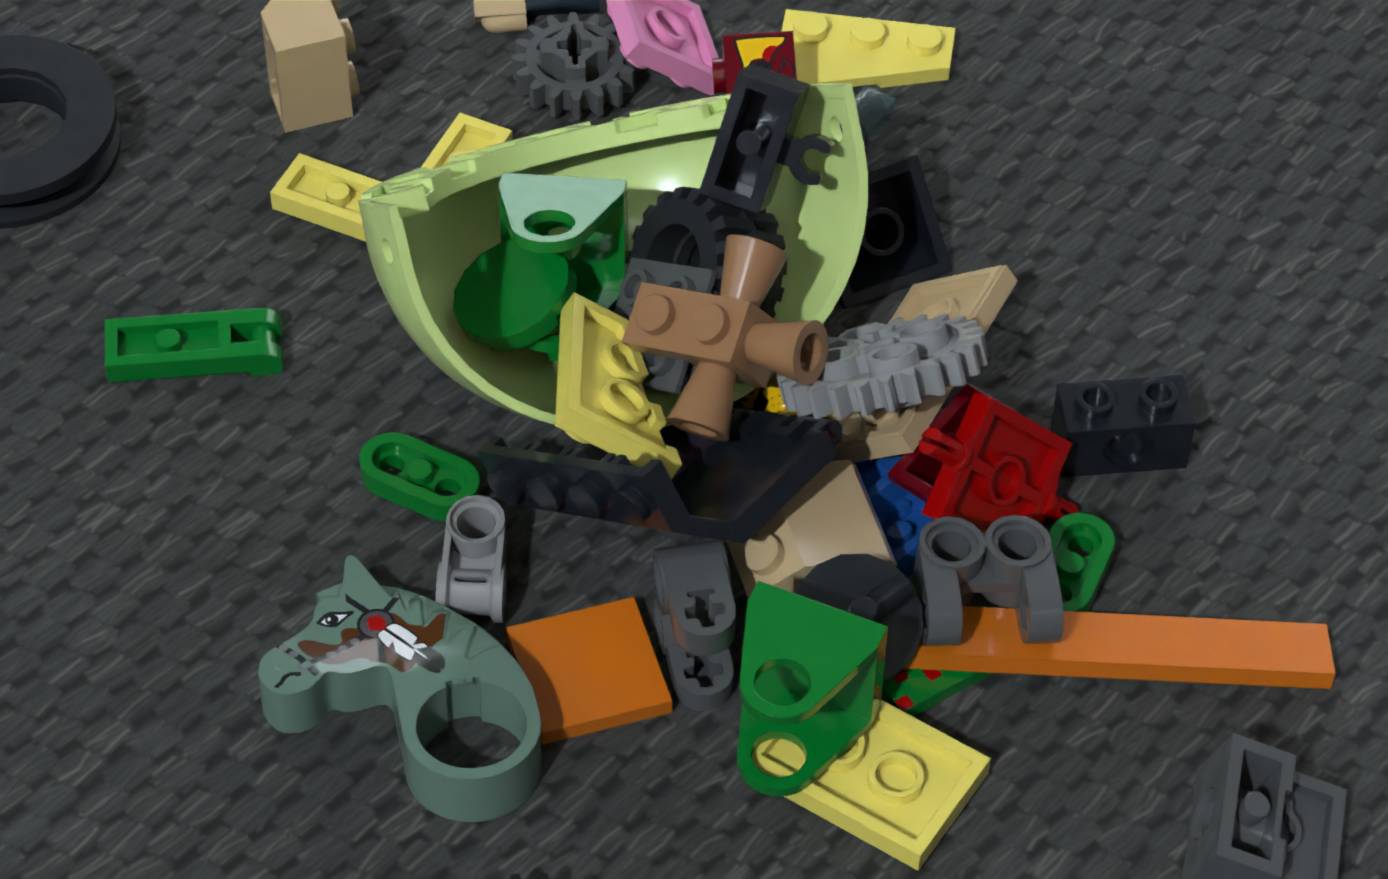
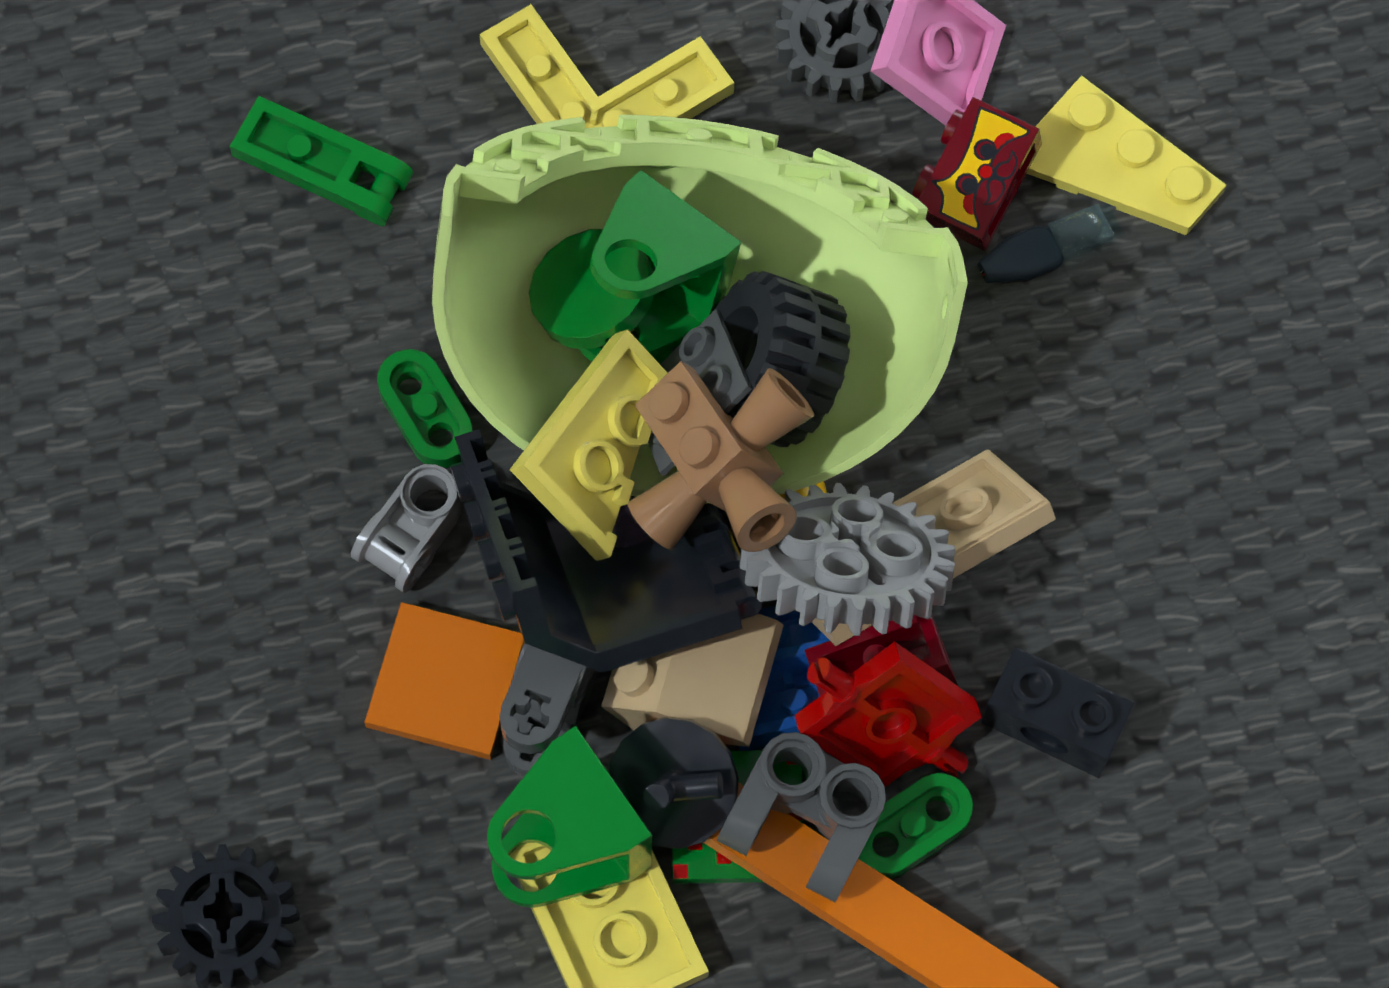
camera: 30 degrees right, 20 degrees up
(425, 664) = (302, 575): sand green animal -> none
(760, 139) = (863, 285): black brick -> none
(900, 234) = (993, 378): black slope -> none

